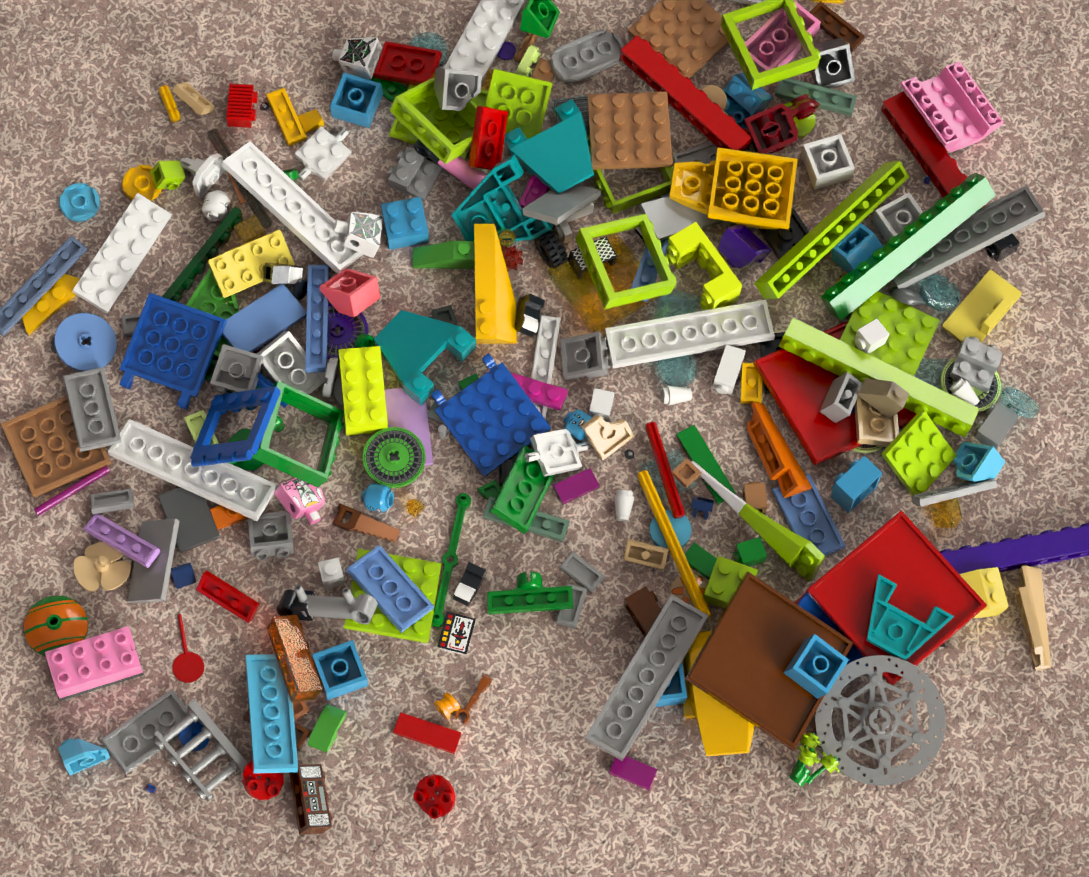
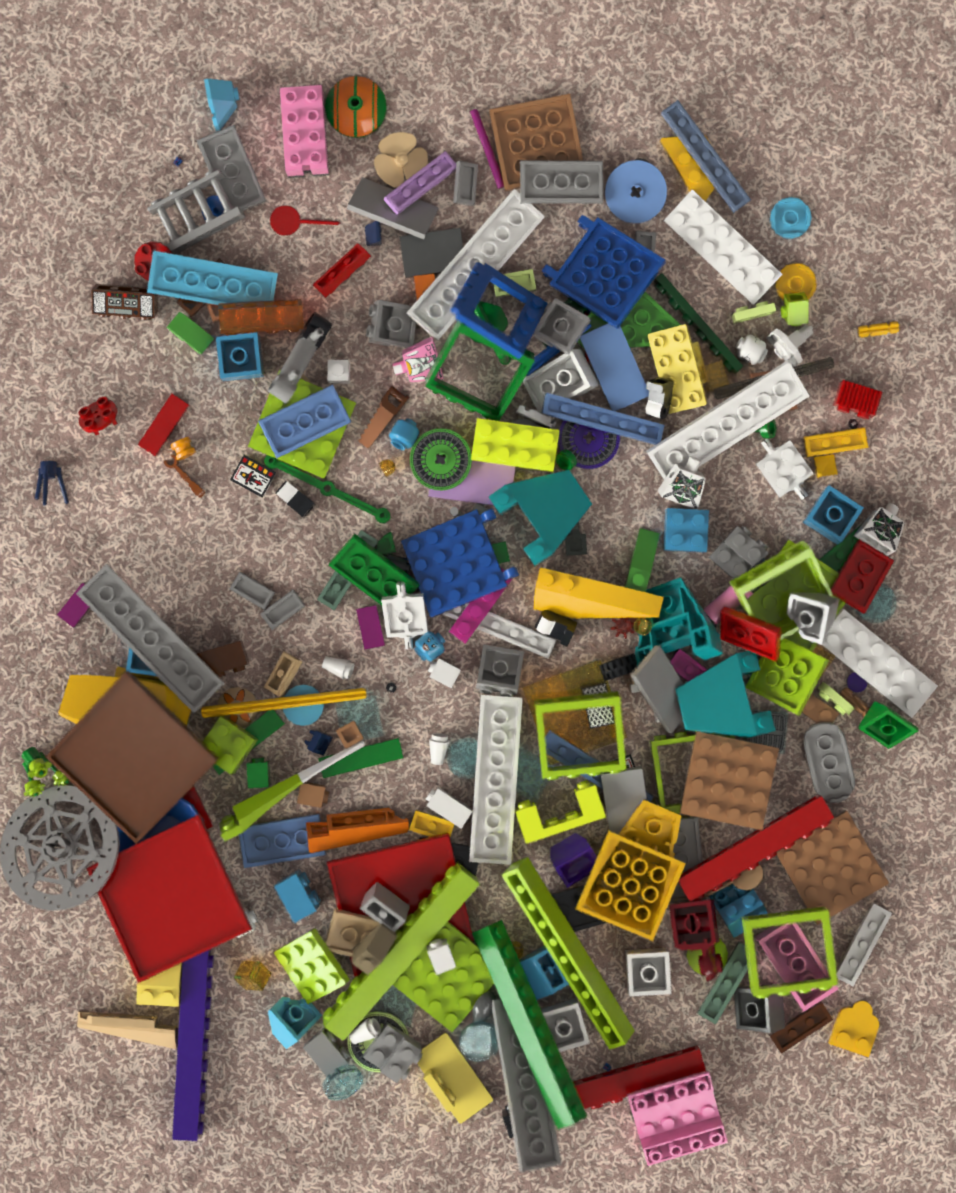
camera: 105 degrees right, 20 degrees up
(182, 219) = (761, 309): none -> yellowish green plate
(193, 98) = (876, 353): tan plate -> none
(300, 289) = (640, 411): black piece -> none
(351, 291) = (622, 458): coral slope -> none
(504, 831) = (47, 471): none -> dark blue plant
(530, 597) = (267, 553): green plate -> none
(606, 436) = (410, 669): tile -> none
(664, 470) = (362, 715): red axle -> none
(816, 666) = (111, 799): dark azure brick -> none
(896, 630) = (133, 887): teal wing -> none
(952, 491) = (267, 984): light grey tile -> none

